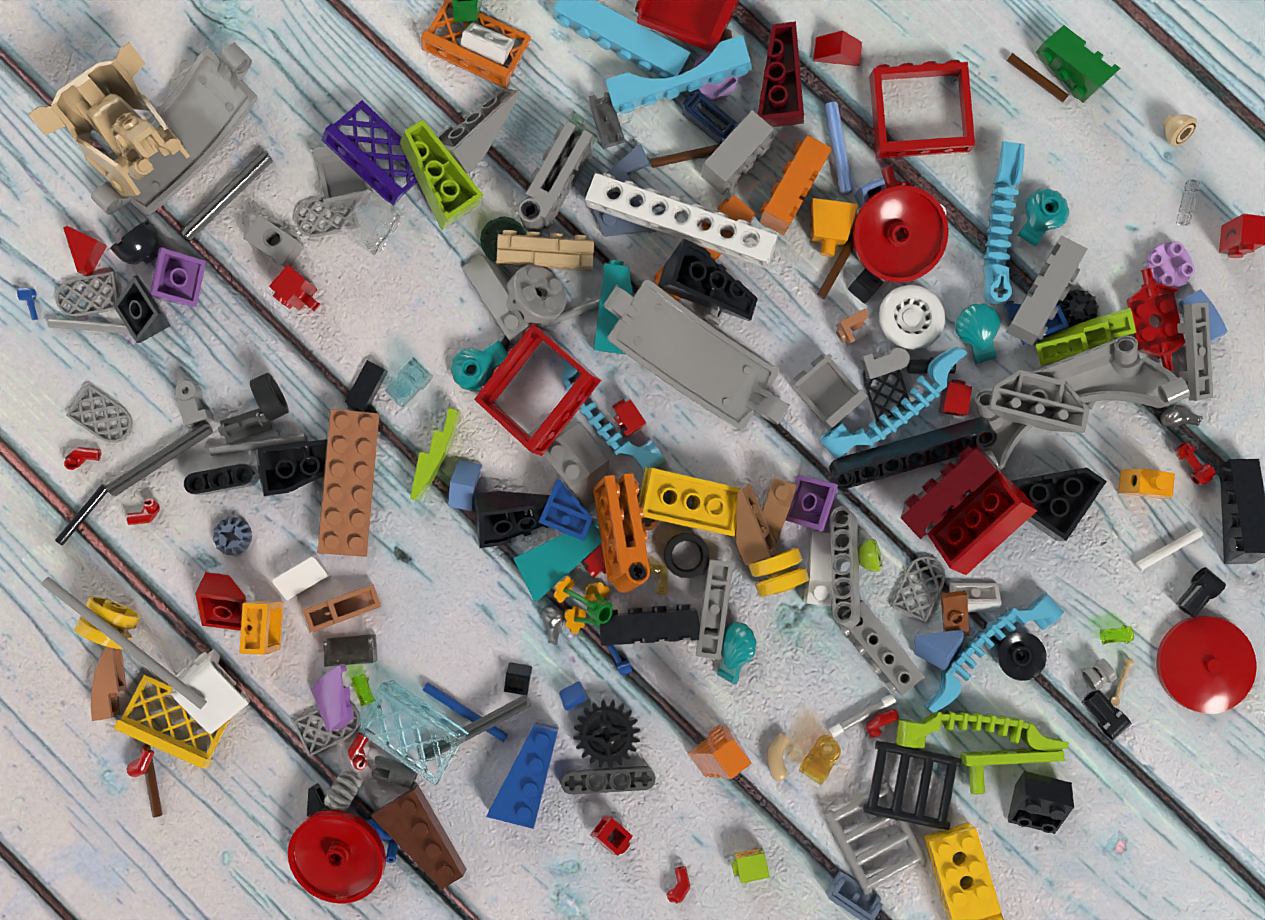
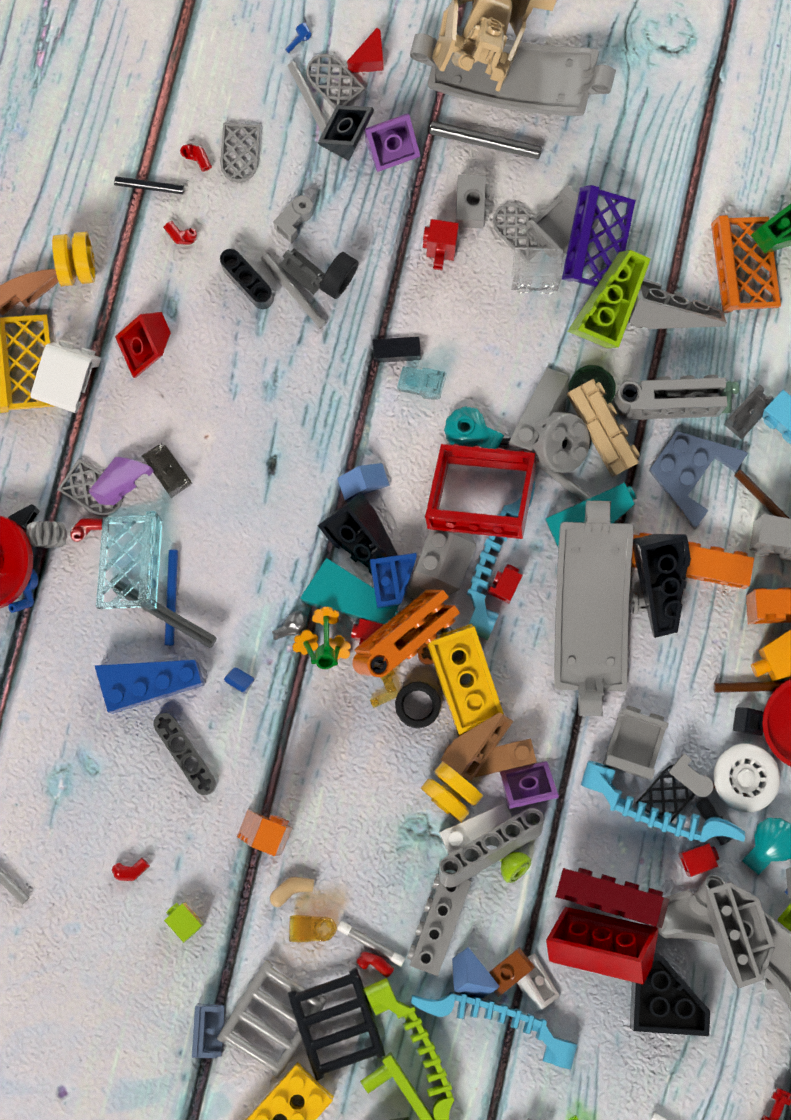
camera: 60 degrees right, 5 degrees down
(123, 642) = (66, 282): light grey piece -> none
(138, 244) = (400, 95): black cylinder -> none
(159, 459) = (233, 219): dark grey axle -> none
(241, 529) = (213, 321): sand blue gear -> none
(266, 624) = (146, 388): light orange window -> none
(290, 466) = (296, 332): black wedge -> none
(300, 577) = (203, 392): white slope -> none
(341, 608) = (197, 441): nougat slope -> none
(348, 483) = (306, 383): nougat plate -> none
(362, 689) = (140, 500): clear neon green pin -> none
(394, 772) = (86, 572): dark grey hinge -> none
(421, 835) = (46, 622): copper wedge -> none
(430, 463) = (364, 441): lime slope -> none
(486, 43) = (750, 272): white slope -> none
(518, 678) = (225, 625): black slope -> none
(604, 184) = (714, 607): white brick -> none
(618, 732) = (211, 710): black gear -> none
(621, 836) = (143, 794): red brick -> none
(623, 667) = (289, 709): blue hand -> none
(650, 625) = (338, 709): black wedge -> none
(714, 609) = (386, 756): light grey hinge -> none
(737, 649) = (362, 796): teal animal -> none
(854, 322) = (710, 729): nougat bracket -> none
(907, 576) = (503, 930): light grey window -> none
(911, 453) = (622, 838): black beam -> none
(1033, 656) = (511, 1068): black dish -> none
(1149, 483) = (730, 1077): light orange torso -> none

